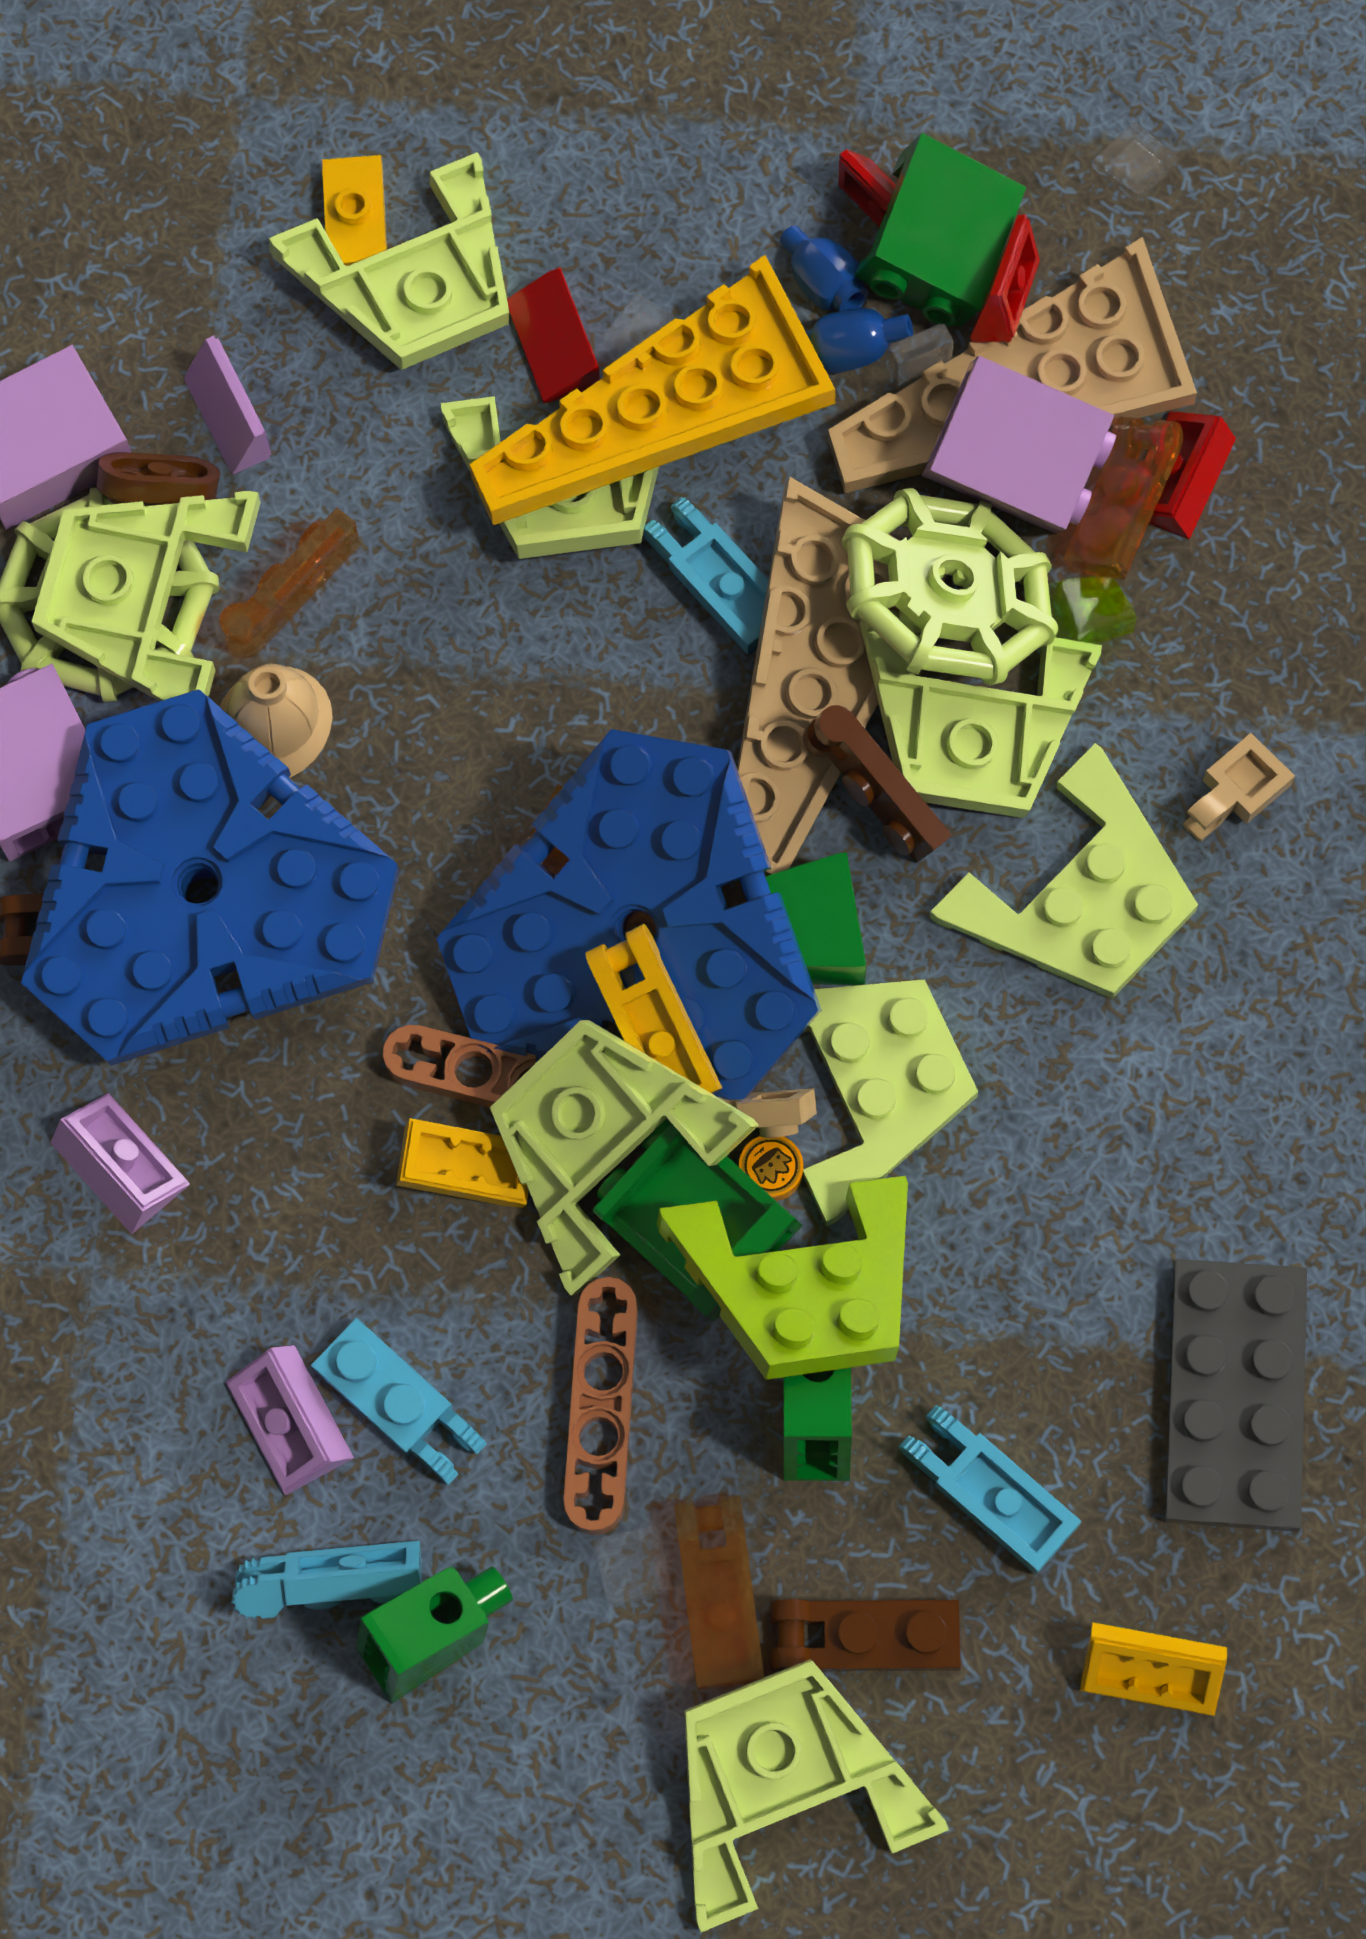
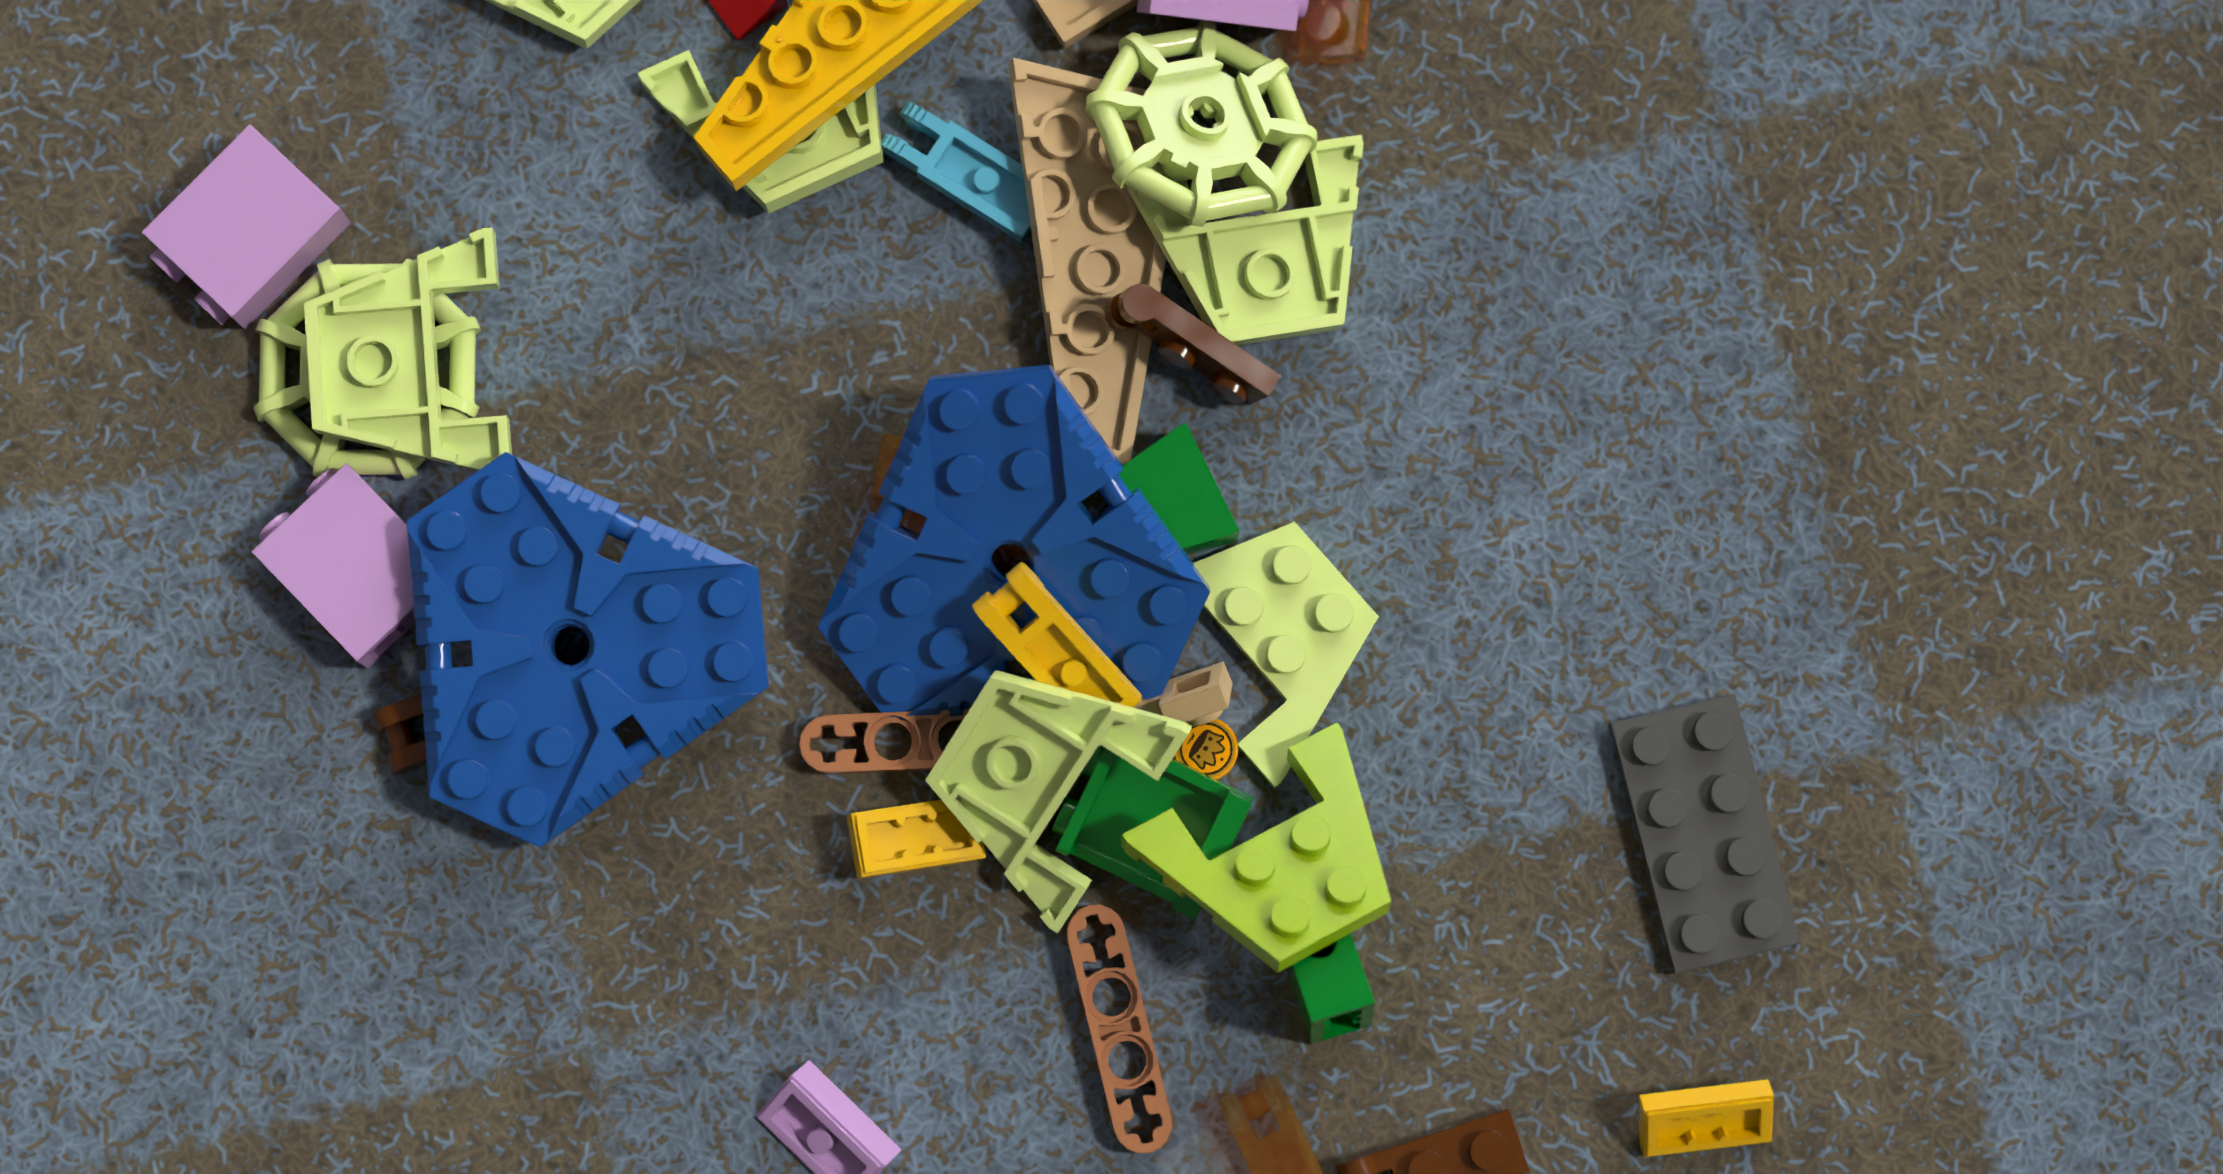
camera: 25 degrees left, 10 degrees up
(118, 1161) = (580, 934): lavender slope -> none
(155, 478) = (382, 237): reddish brown plate -> none
(226, 408) = (424, 140): lavender slope -> none
(282, 712) = (584, 440): tan hat -> none
(289, 585) = (549, 310): clear orange plate -> none
(393, 1397) = (920, 1081): medium azure hinge -> none
(995, 1492) = (1512, 998): medium azure hinge -> none
(1094, 609) = (1343, 99): clear neon green slope -> none
(1104, 907) = (1442, 397): yellowish green wing -> none
(1239, 782) = (1537, 236): tan plate -> none

